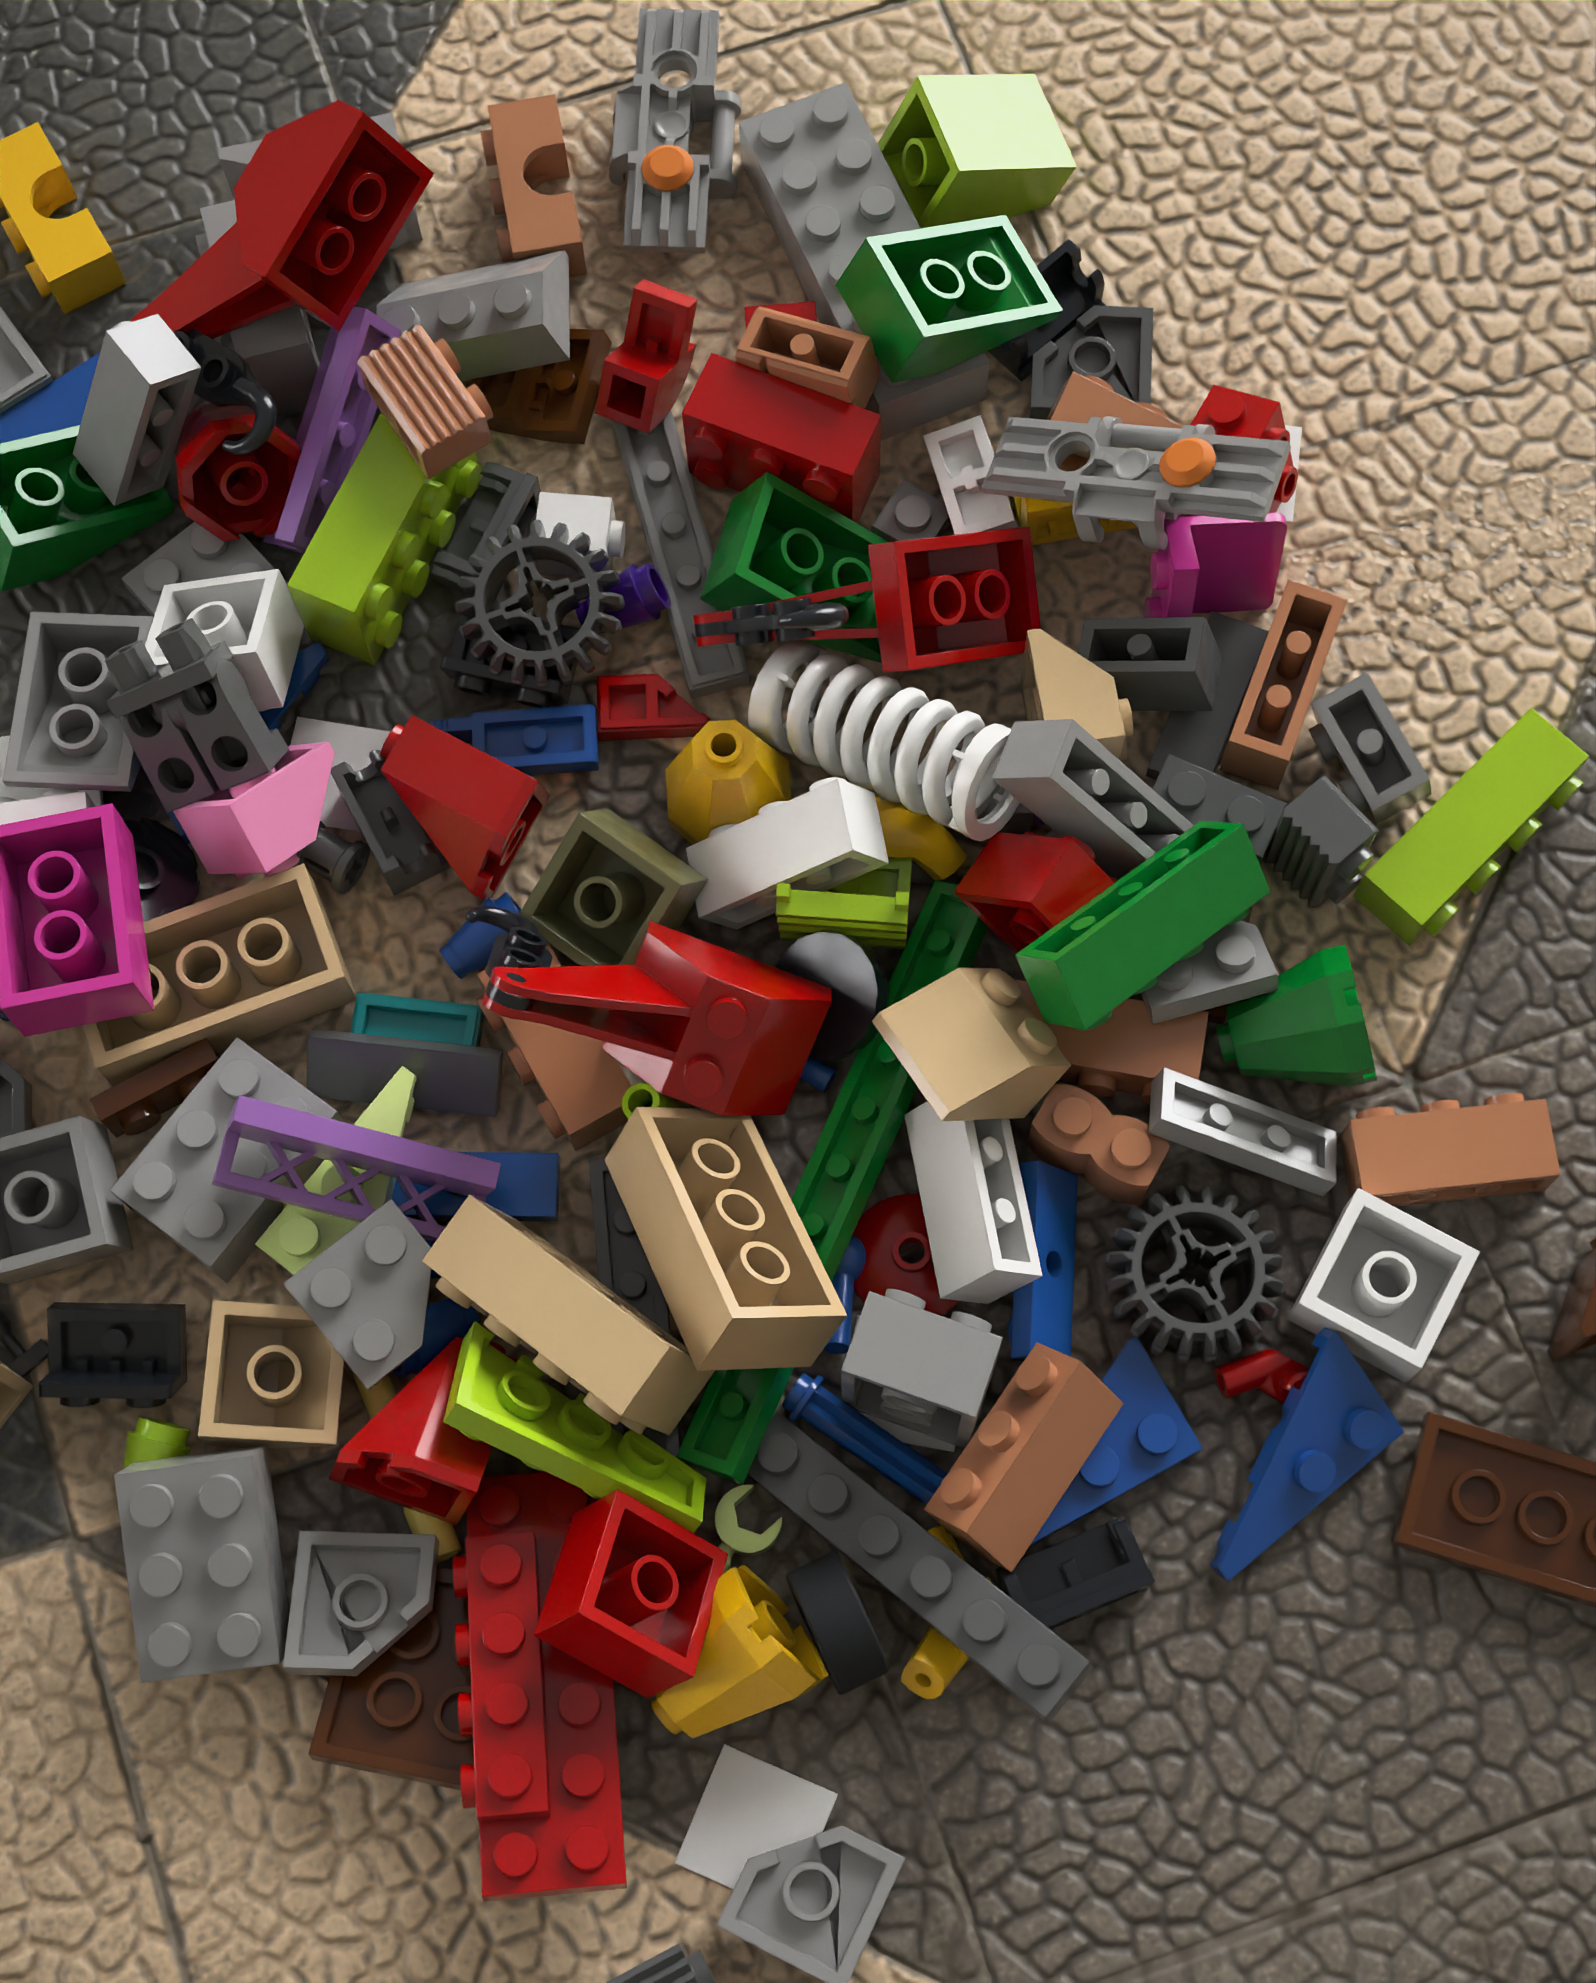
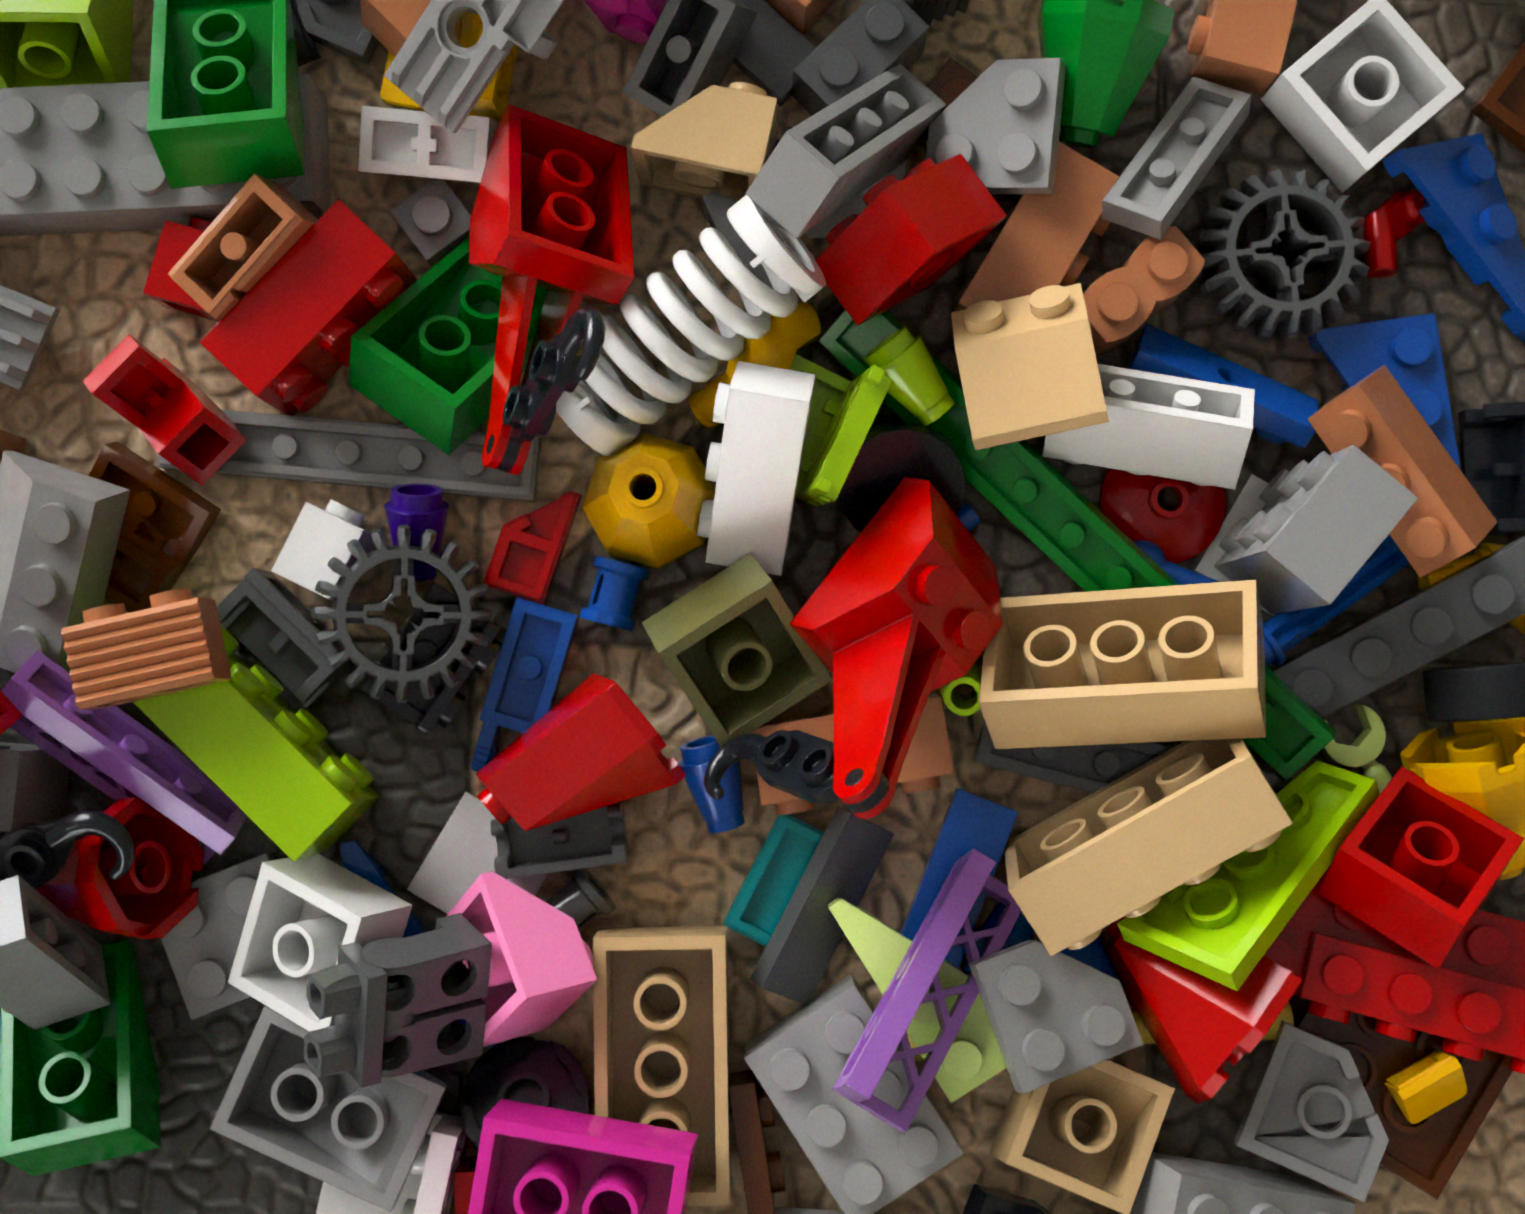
camera: 70 degrees left, 15 degrees up
(417, 1699) = (1427, 1086): none -> yellow slope
(630, 786) = (614, 593): none -> blue bush
(928, 953) = (914, 375): none -> lime cone
(1143, 925) = (979, 158): green brick -> none

